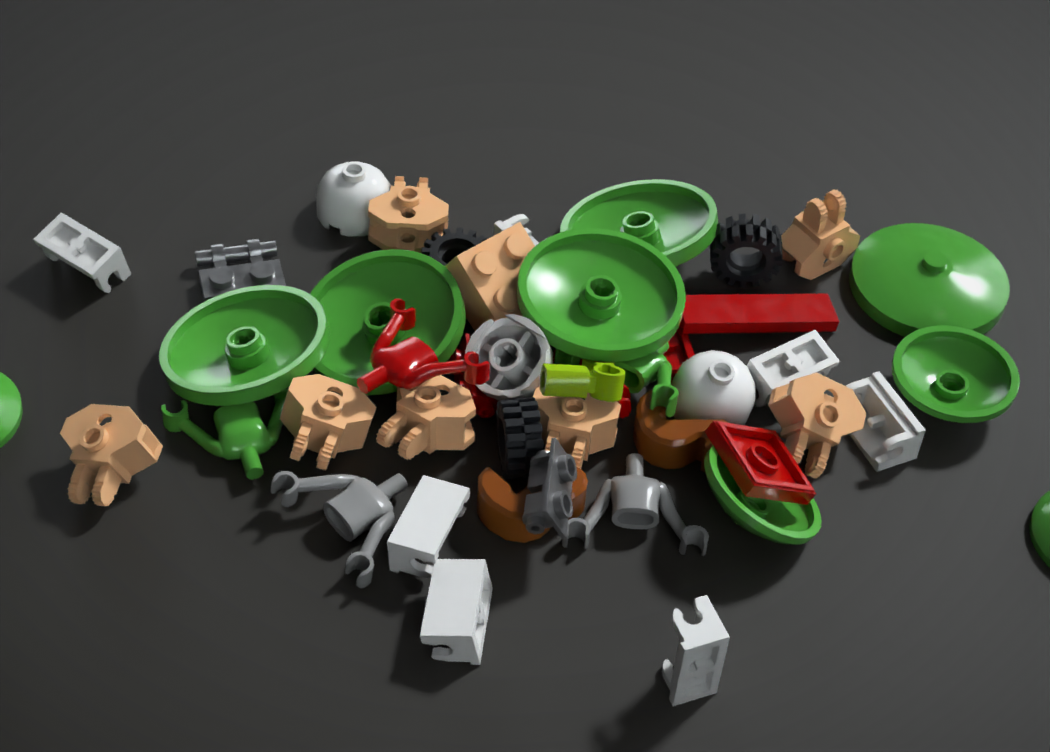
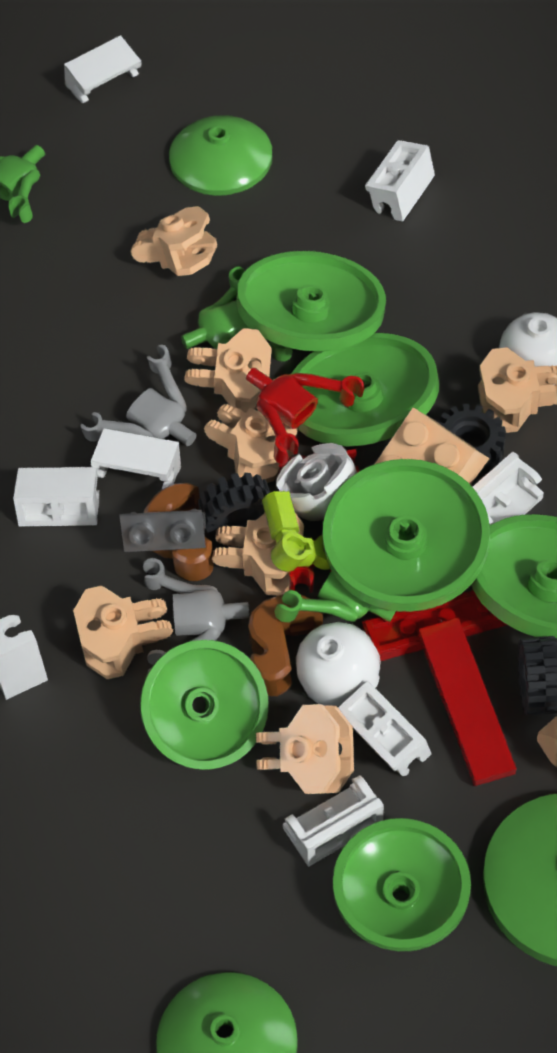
camera: 90 degrees right, 10 degrees up
(228, 278) = (408, 295): flat silver plate -> none
(657, 563) = (111, 630): none -> light nougat hinge
(760, 463) = (231, 696): red tile -> none

